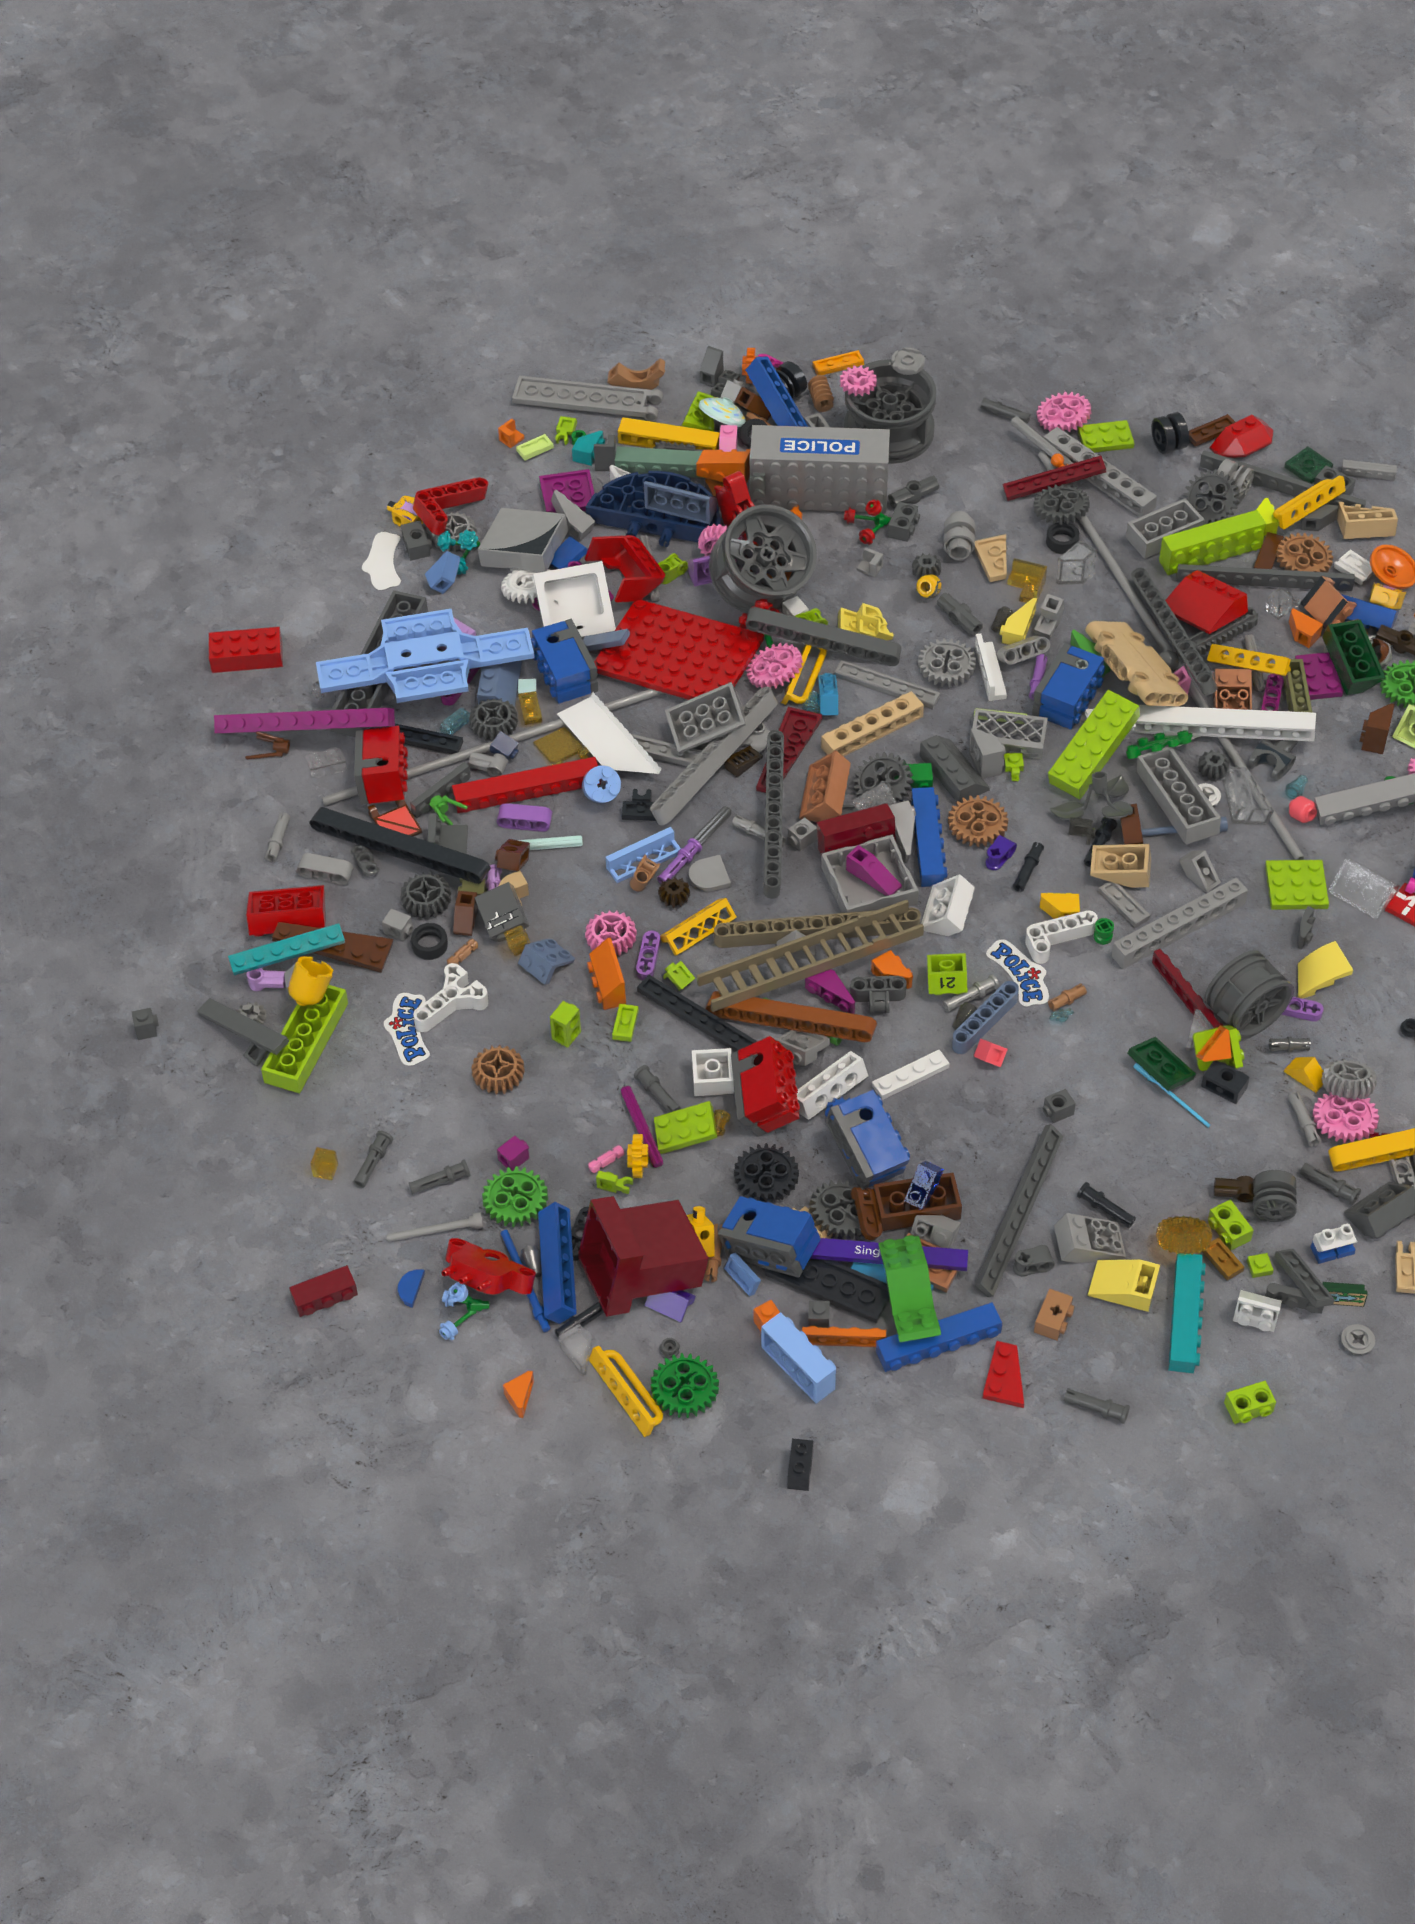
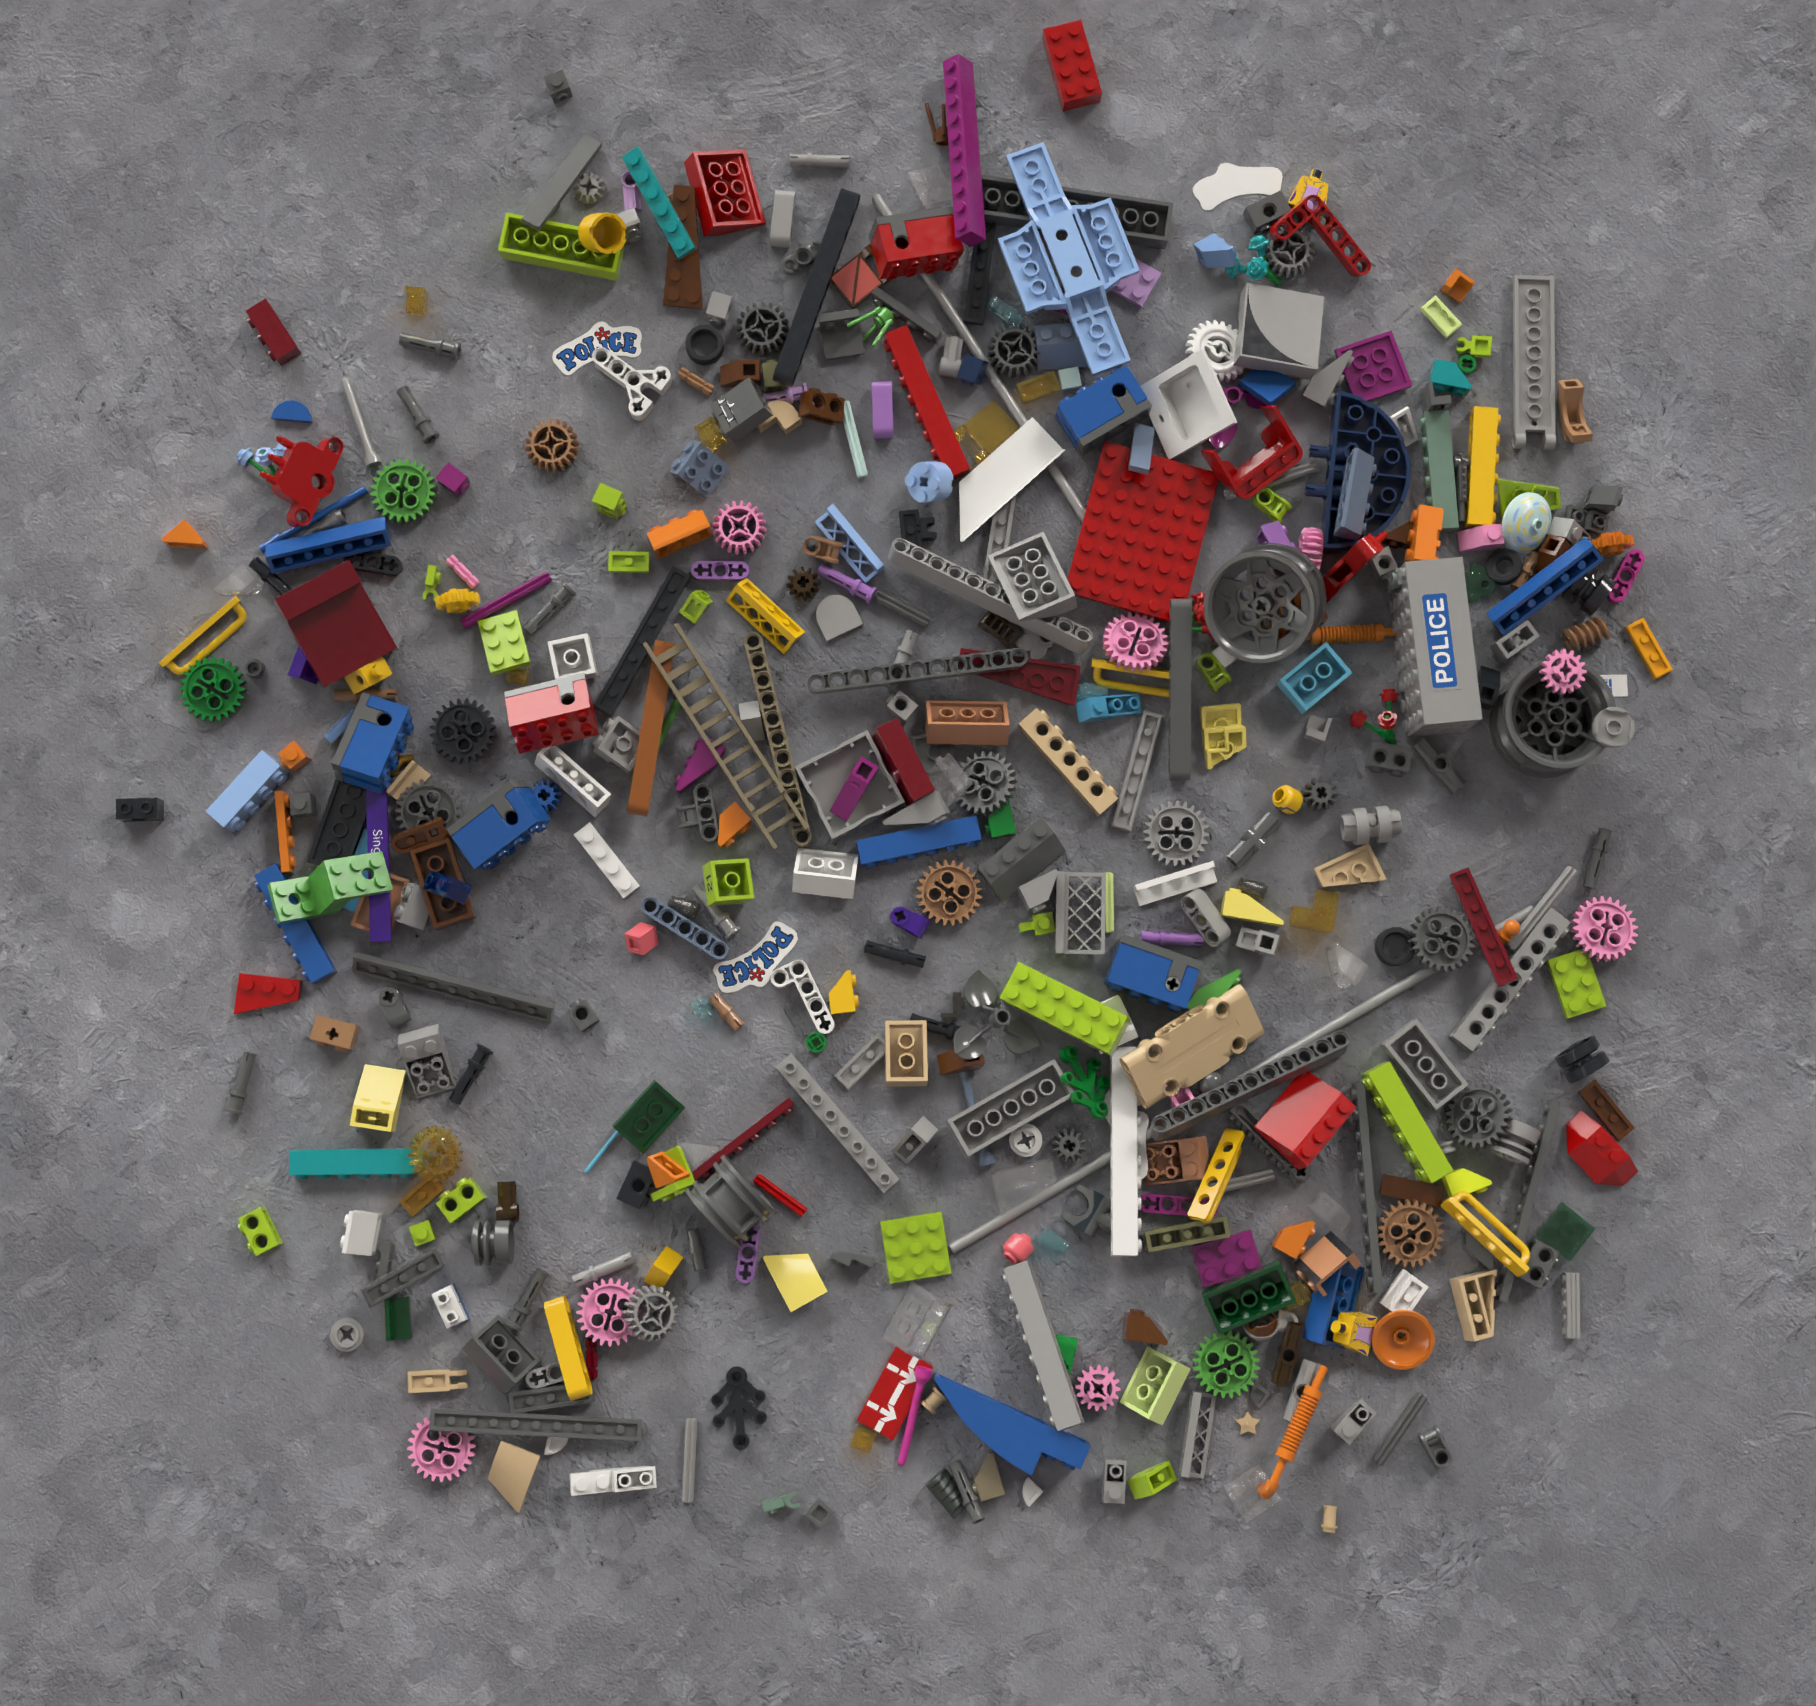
camera: 75 degrees right, 30 degrees up
(833, 557) = (1314, 678): none -> medium azure brick

